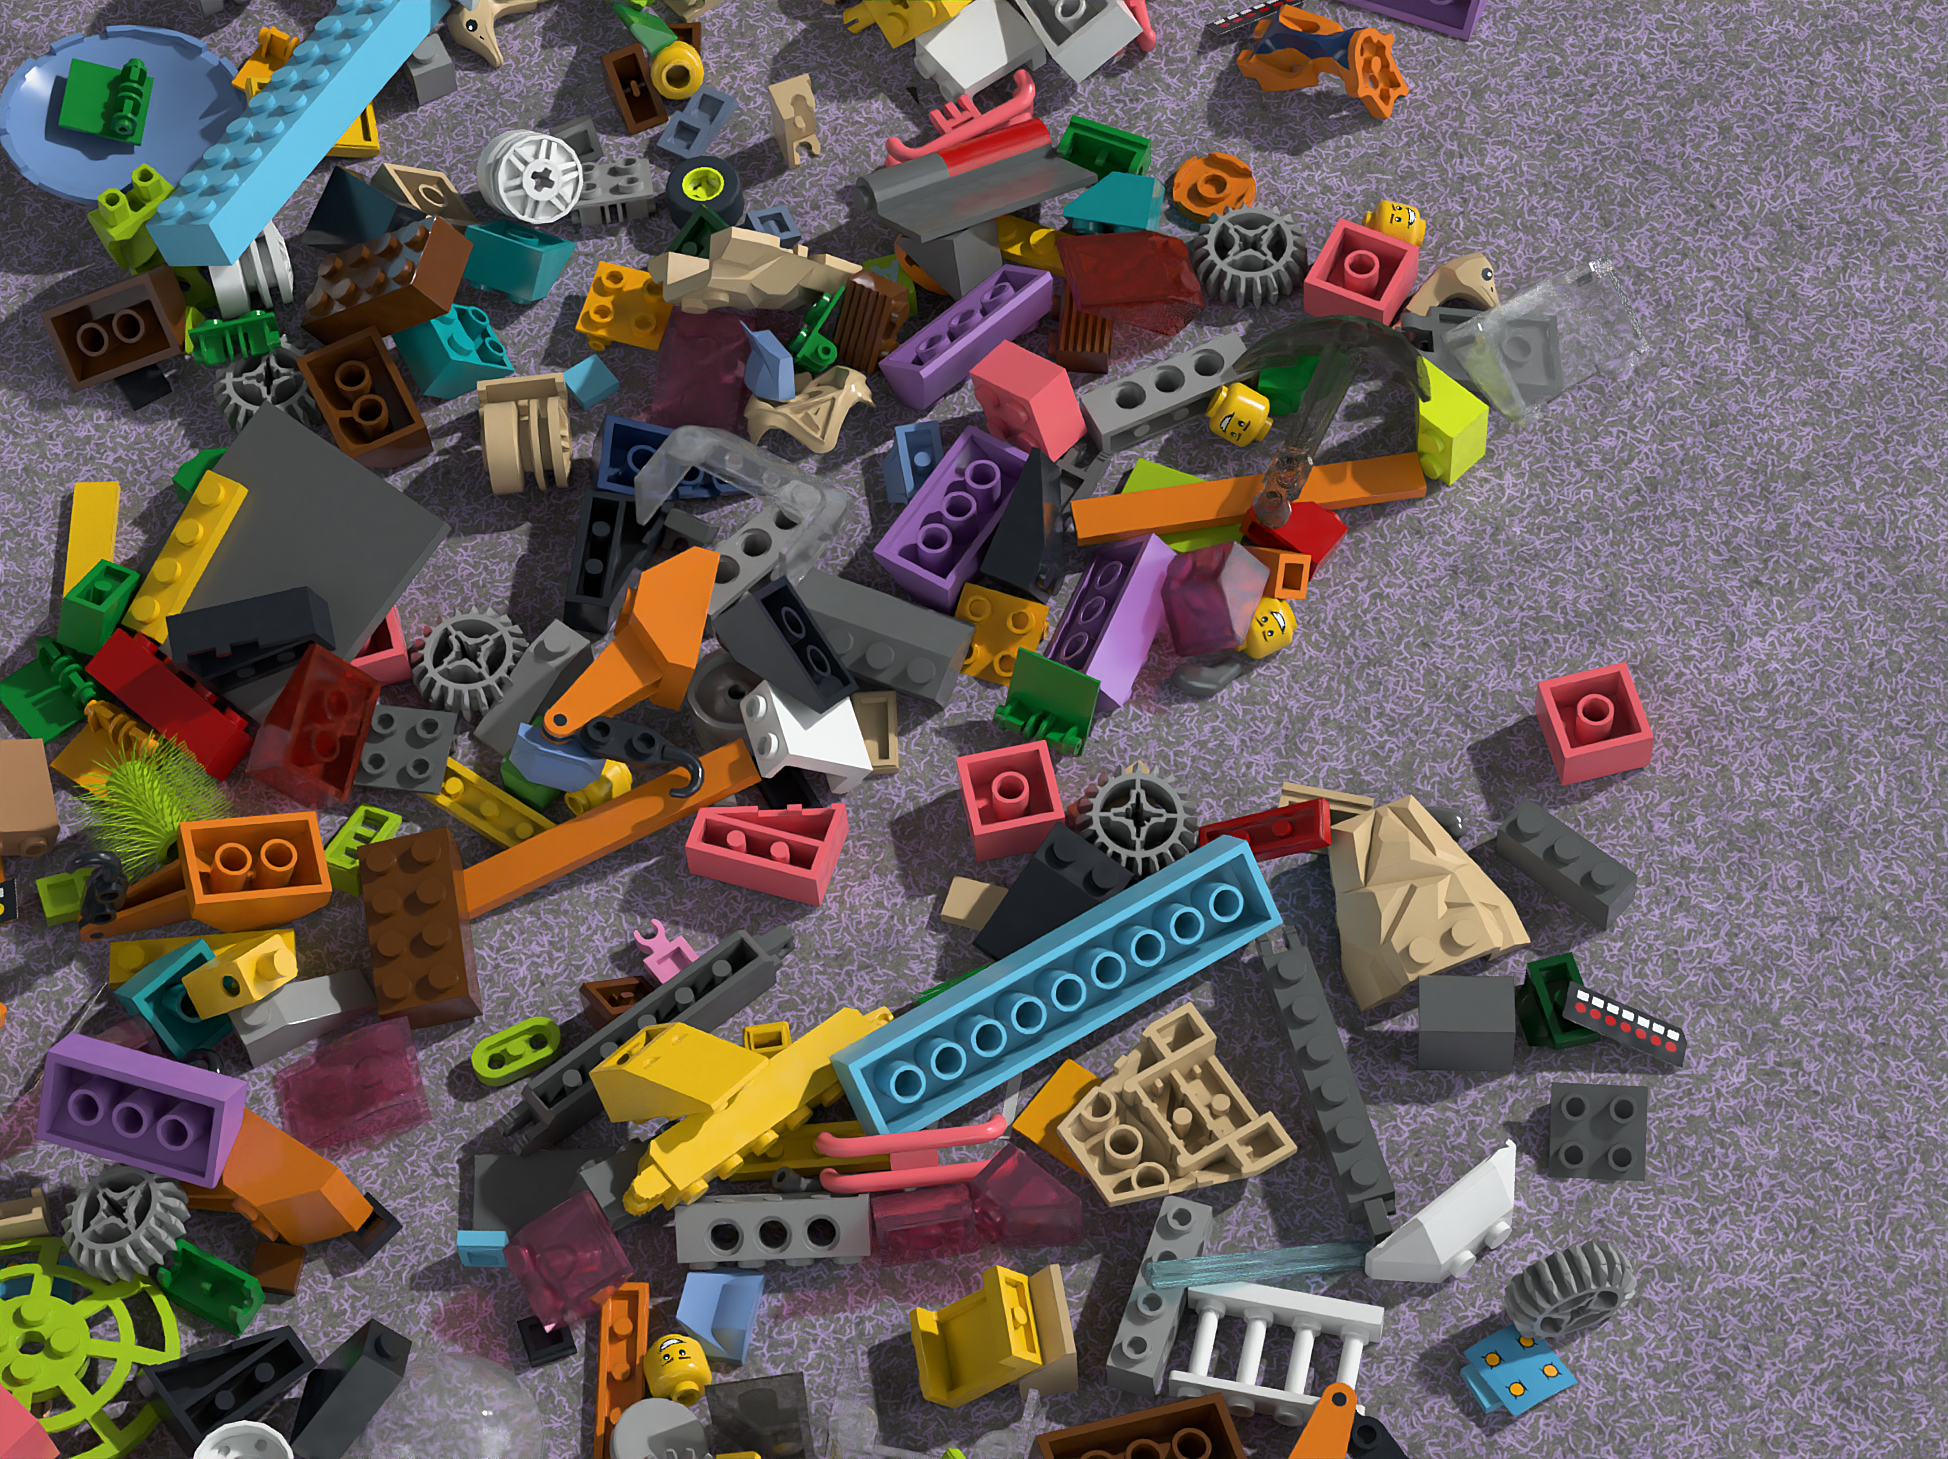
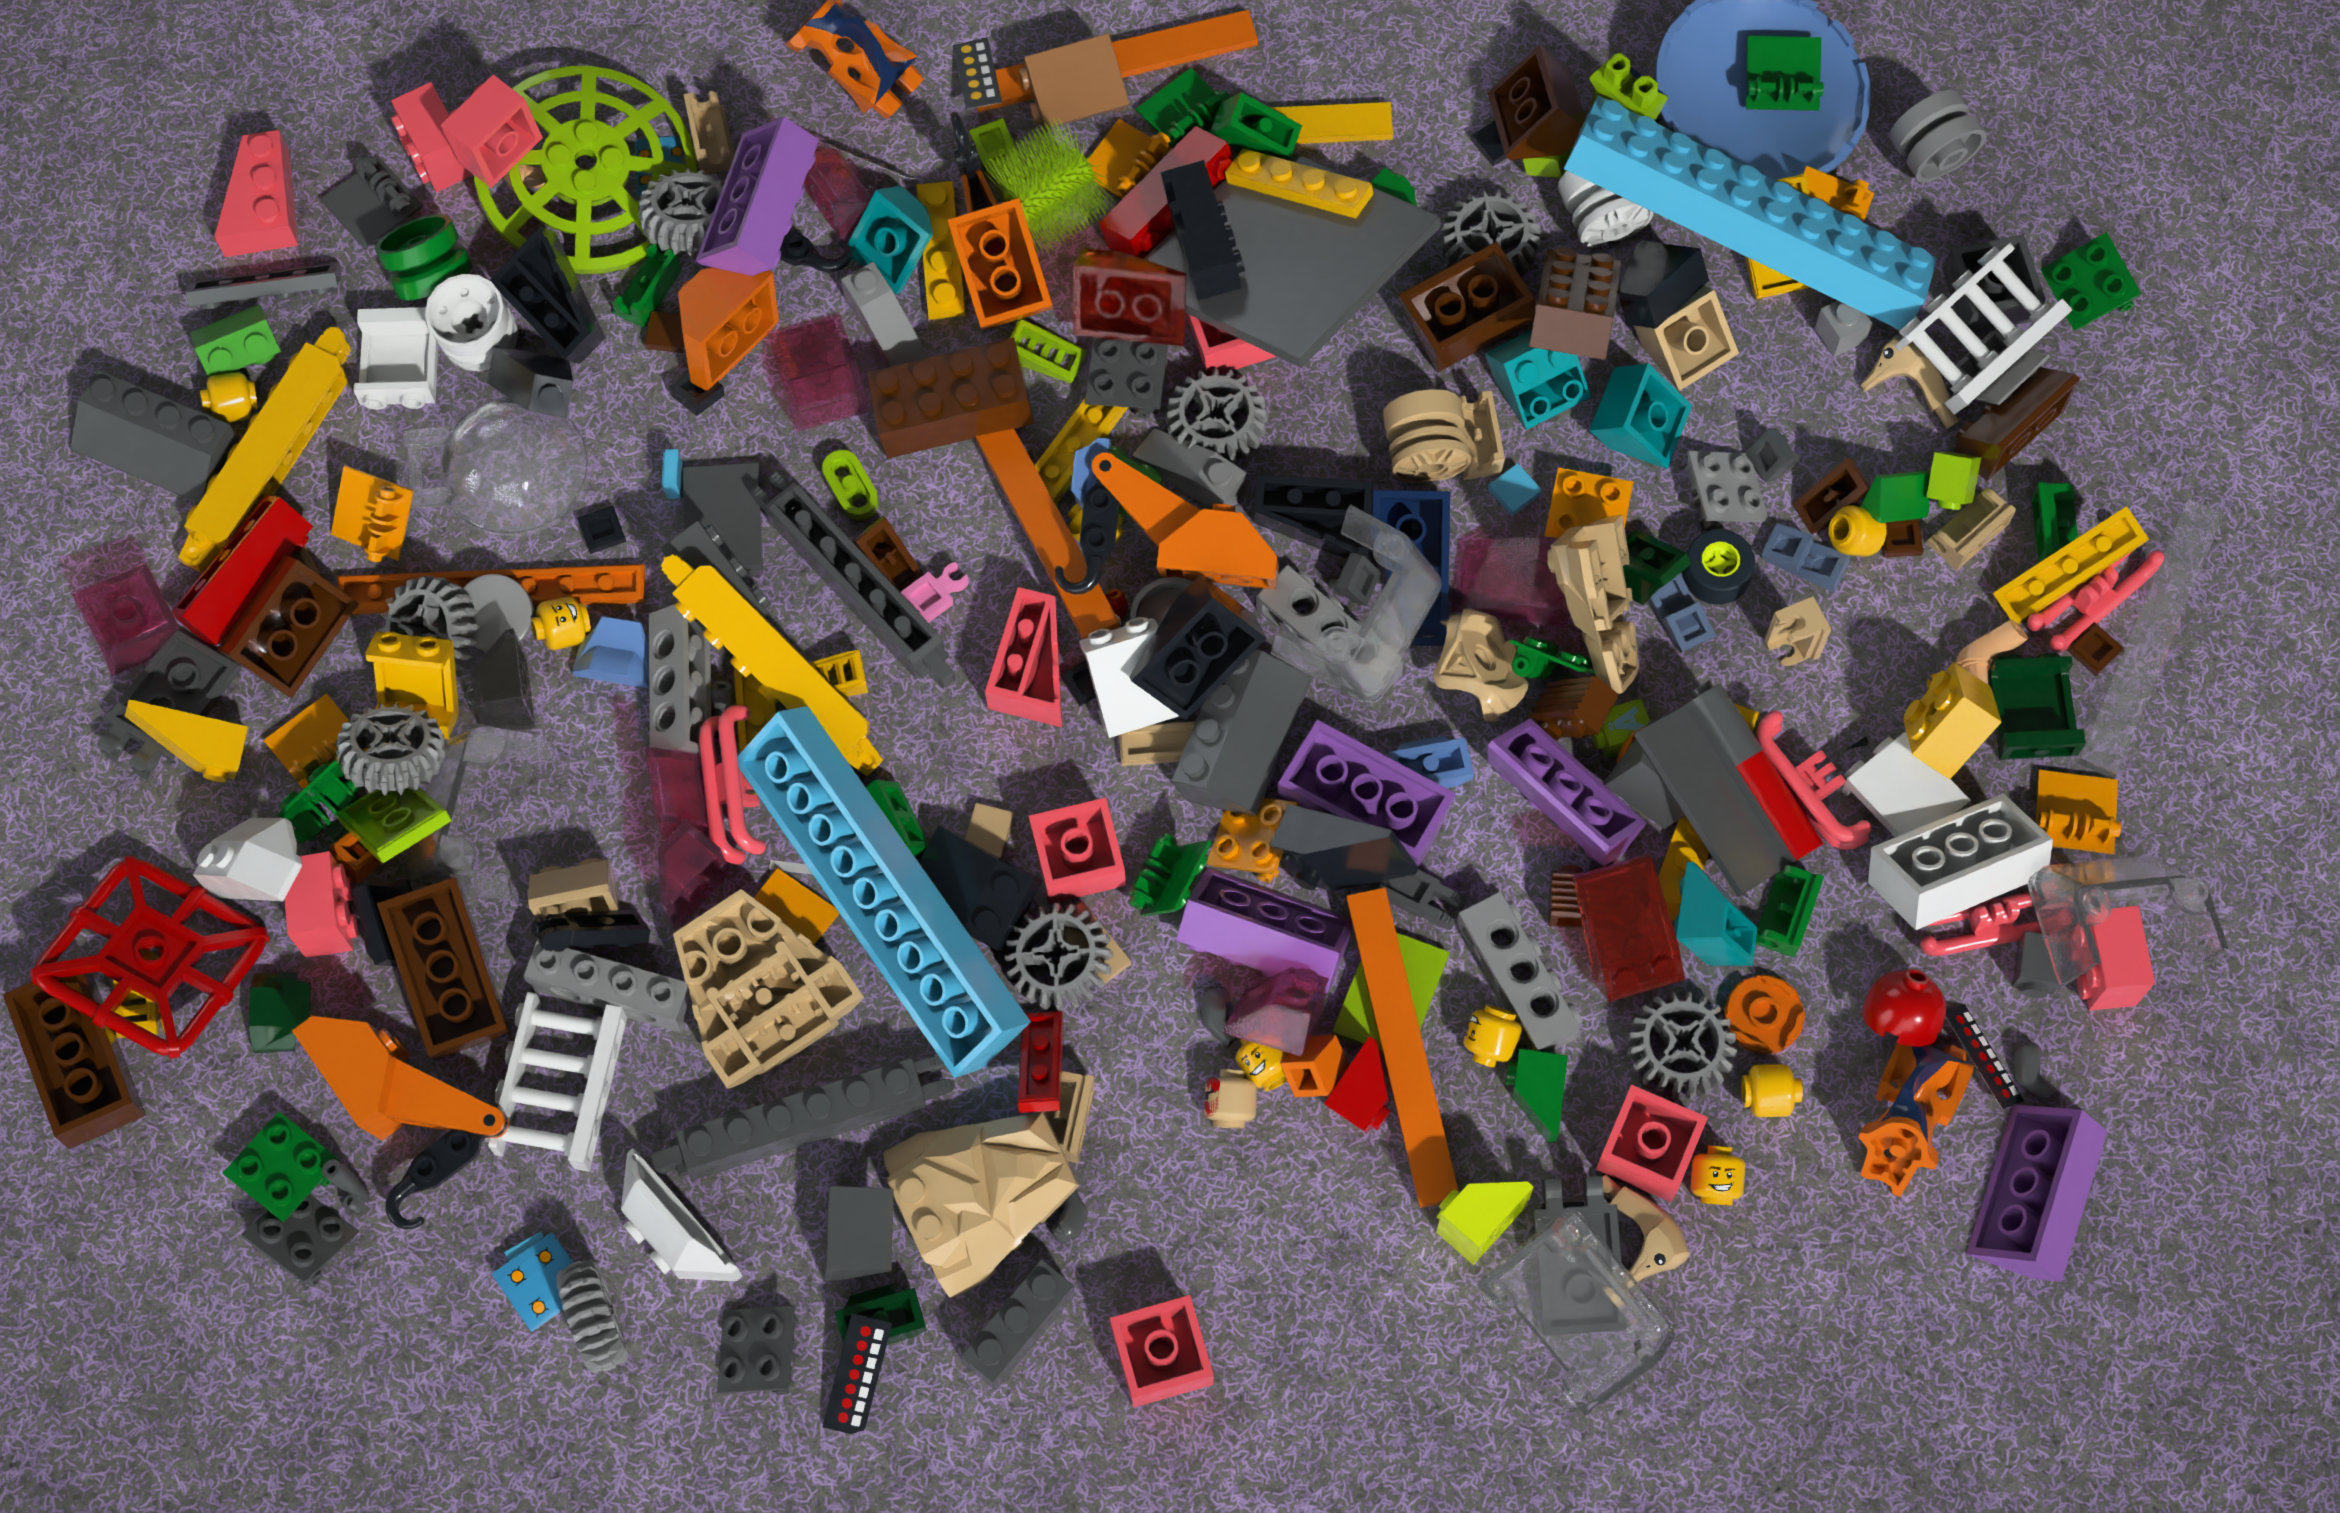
camera: 85 degrees right, 10 degrees up
(216, 337) = (1523, 198): green hinge -> none
(255, 963) = (897, 266): yellow torso -> none
(506, 176) = (1711, 411): white wheel -> none
(568, 1262) = (639, 525): clear pink slope -> none
(673, 1073) = (779, 584): yellow slope -> none
(769, 367) = (1521, 617): medium blue slope -> none
(977, 1340) = (565, 838): yellow panel -> none
(1028, 400) = (1484, 843): coral brick -> none
(1093, 1308) = (590, 929): none -> black hinge
(1217, 56) = (1905, 1006): none -> red cylinder
(1256, 1265) = (624, 1058): clear light blue axle -> none
(1302, 180) = (1770, 1090): none -> yellow head
(1306, 662) = (1230, 1099): none -> tan head
(1344, 346) = (1512, 1107): clear smoke piece -> none

